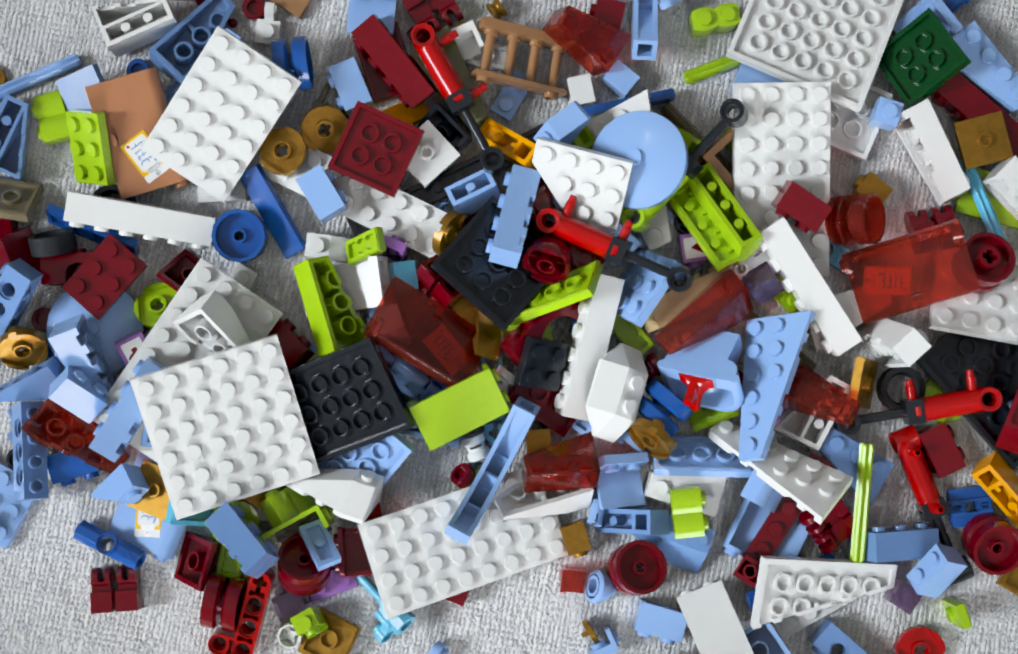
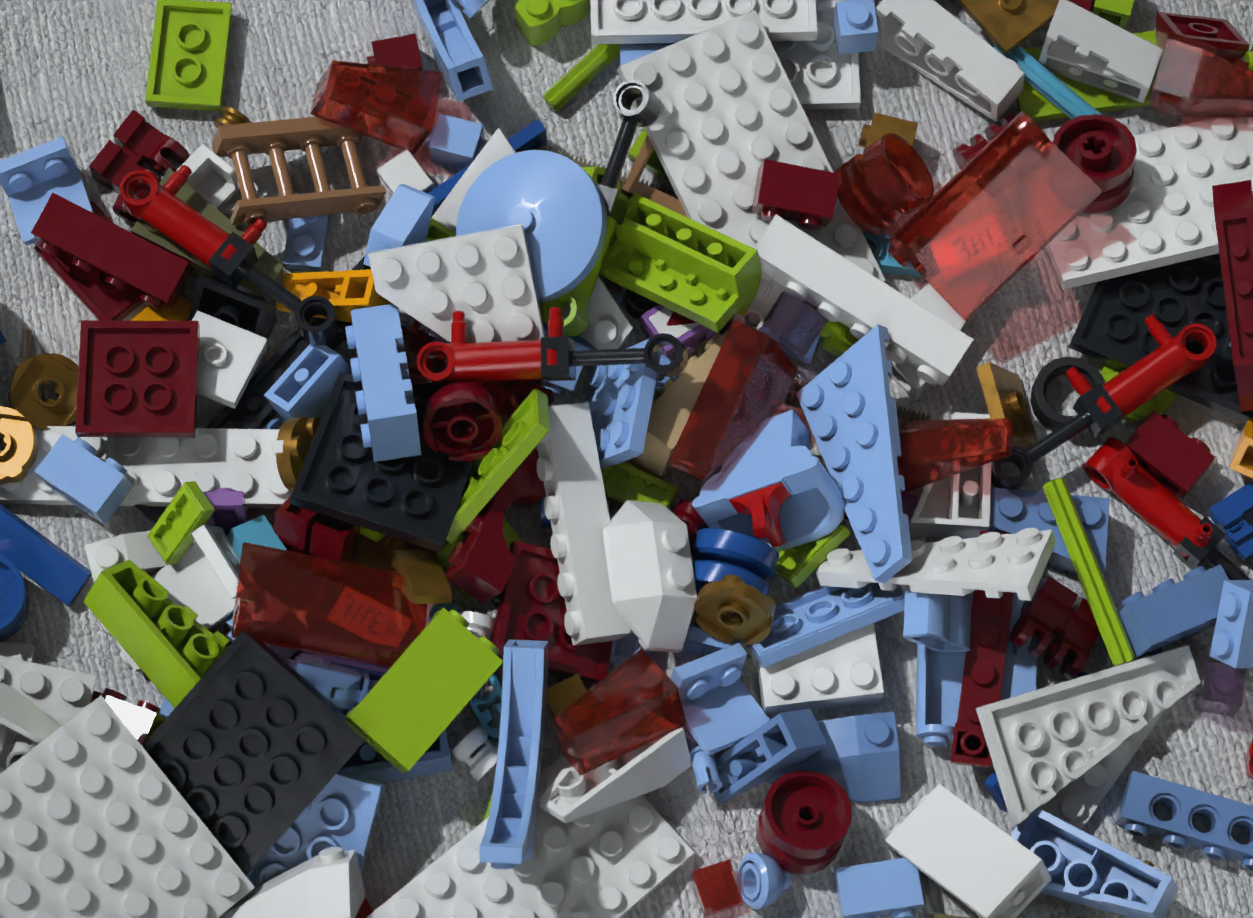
camera: 25 degrees left, 15 degrees down
(349, 84) = (56, 313): light blue brick -> none
(463, 475) = (475, 805): dark red tile -> none
(542, 363) = (520, 575): black plate -> none
(575, 538) = (692, 823): pearl gold brick -> none
(687, 511) = (837, 694): lime brick -> none
(893, 342) = (1017, 324): white wedge -> none

